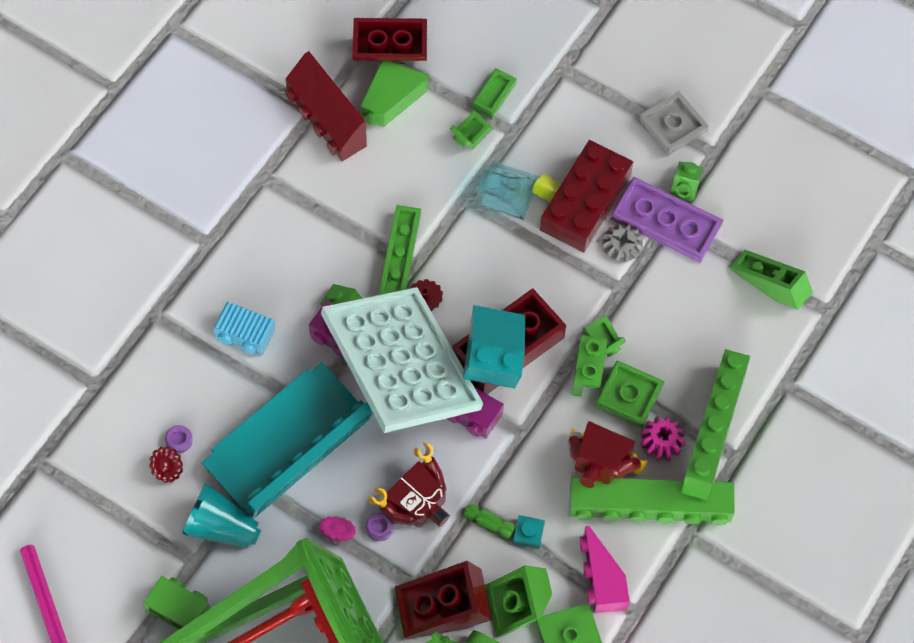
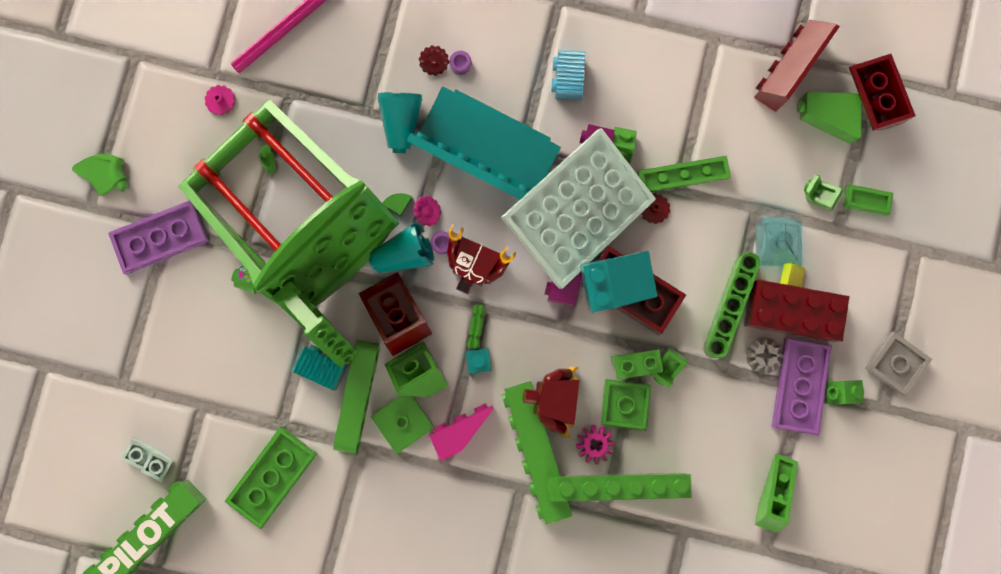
camera: 75 degrees right, 20 degrees up
(174, 603) = (323, 113): bright green brick -> none
(375, 567) = (403, 251): none -> teal cone
(563, 265) = (739, 297): none -> bright green beam

